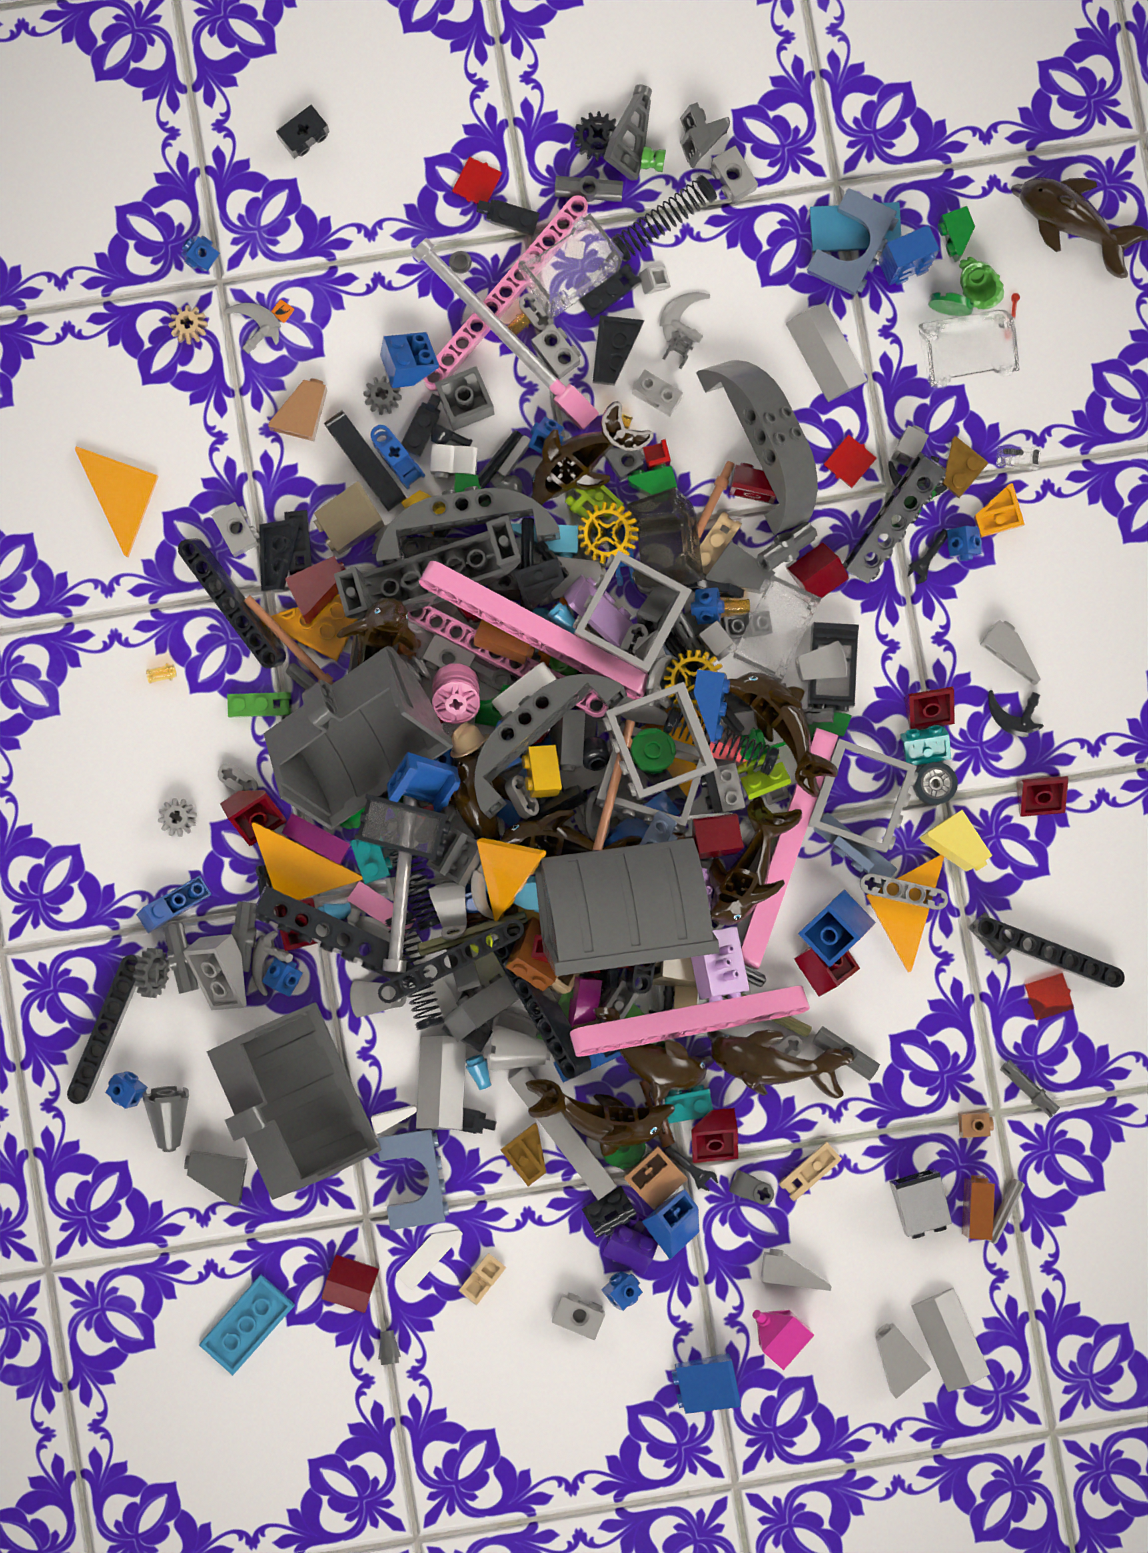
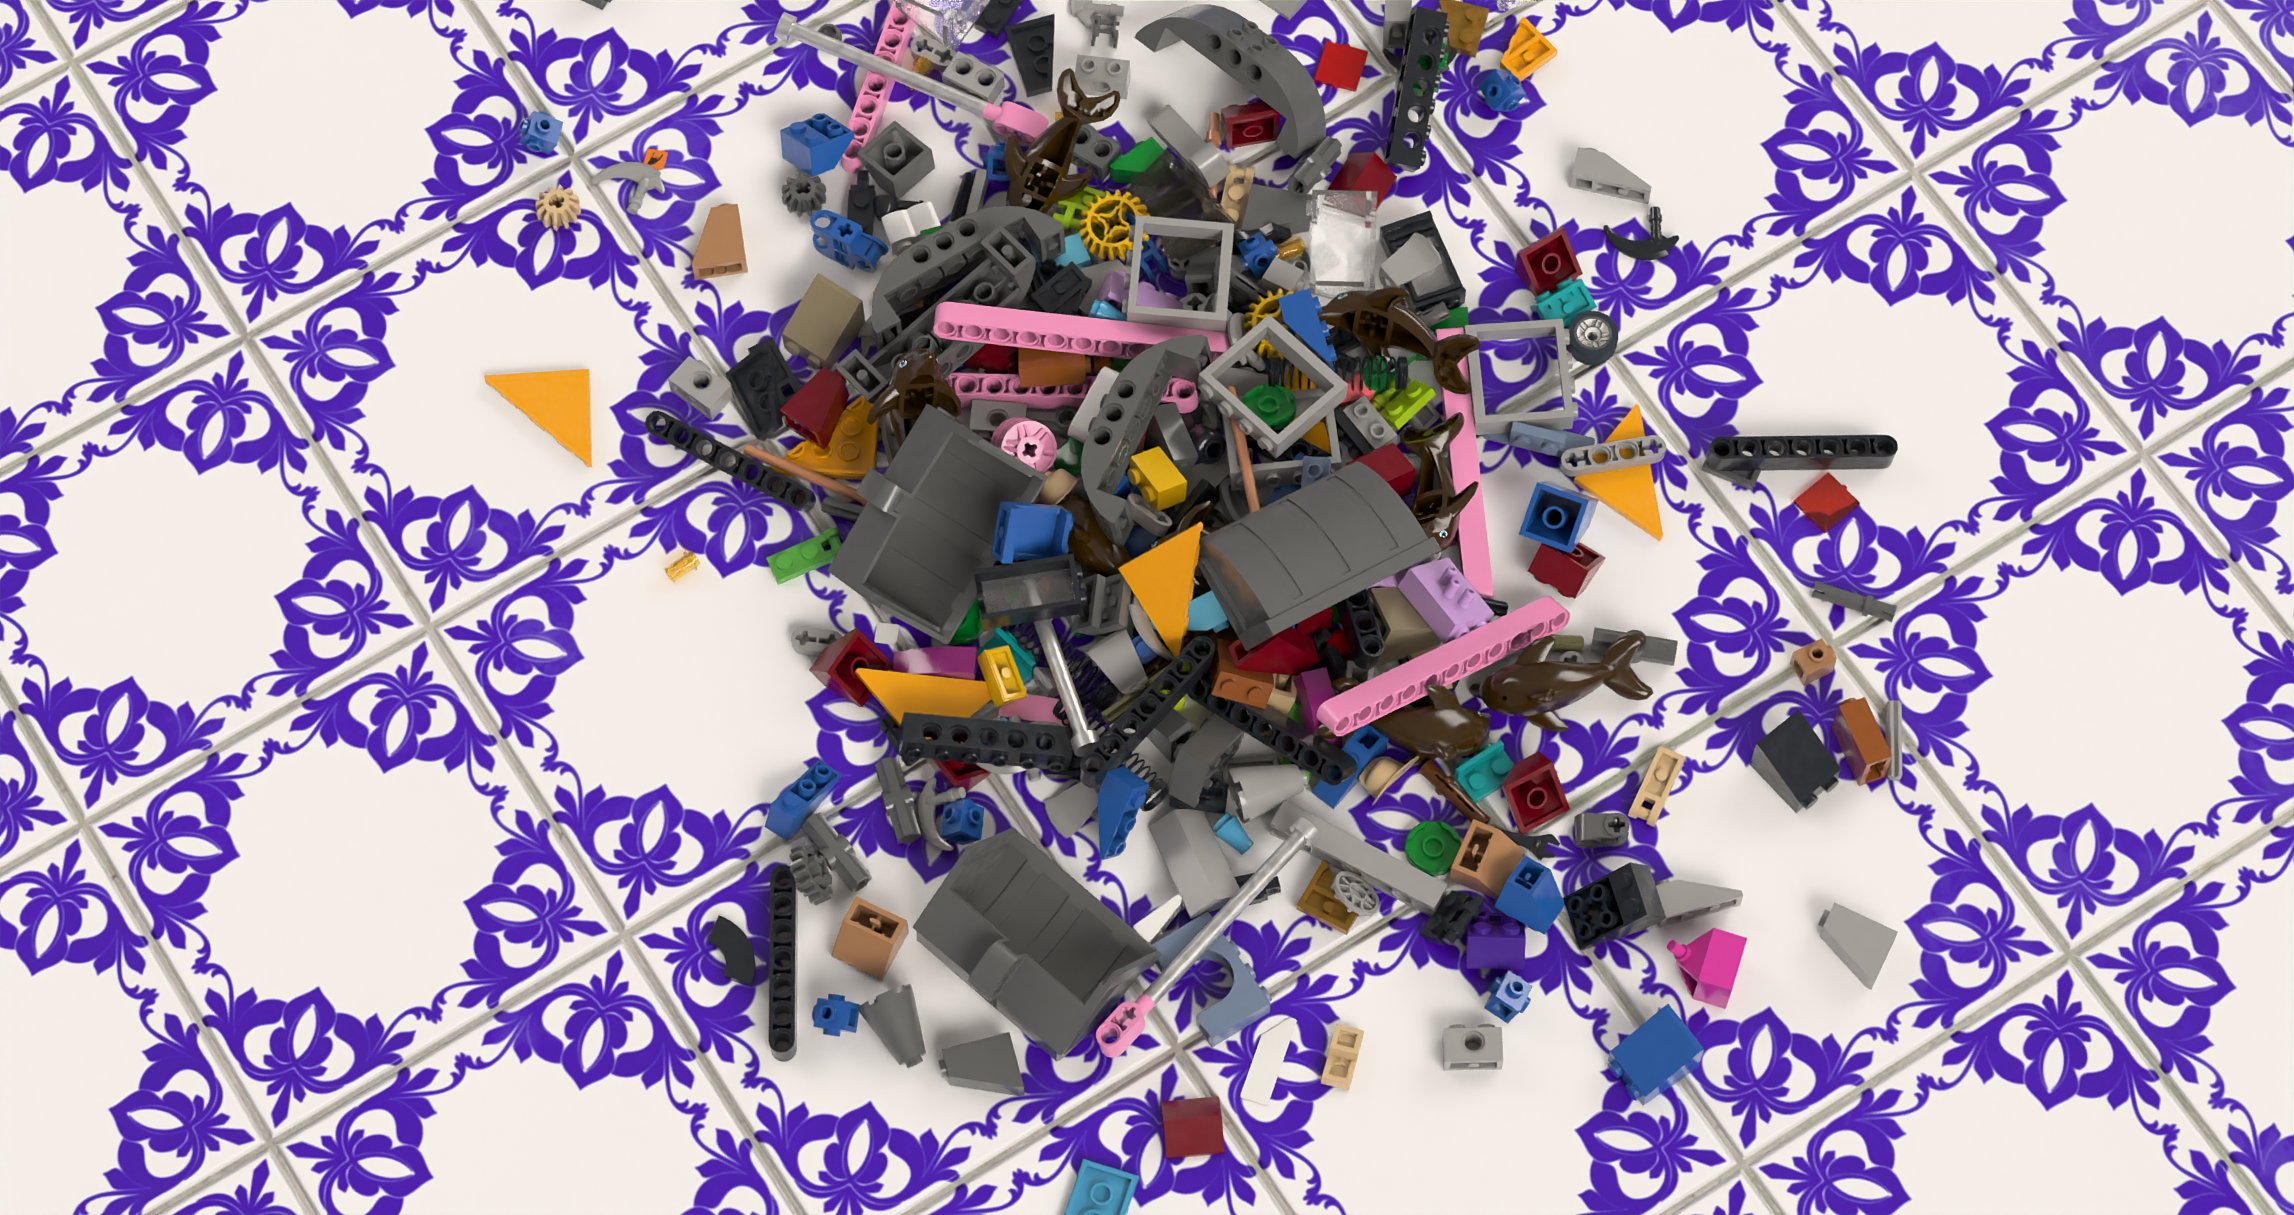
camera: 15 degrees left, 20 degrees down
(77, 1002) = (736, 949): none -> black tile
(170, 822) = (777, 705): light grey gear -> none
(176, 1039) = (869, 938): none -> medium nougat slope
(218, 970) = (888, 843): light grey slope -> none
(361, 872) = (1001, 676): none -> yellow slope
(365, 460) = (807, 261): black beam -> none
(388, 1348) = (1271, 1178): dark grey cone -> none
(398, 1022) = (1118, 805): none -> blue slope
(417, 1153) = (1302, 834): none -> flat silver piece
(546, 1162) = (1354, 895): none -> light grey wheel
(609, 1077) = (1382, 773): none -> tan piece
(610, 1123) = (1400, 821): dark brown animal -> none
(656, 455) = (1131, 134): red panel -> none
(697, 485) = (1192, 150): none -> light grey beam
(733, 1255) = (1614, 906): none -> black slope
(921, 566) = (1469, 133): black piece -> none
(950, 1340) = (1904, 902): light grey slope -> none
(958, 842) = (1646, 383): light yellow slope -> none
(1042, 796) = (1712, 301): dark red slope -> none

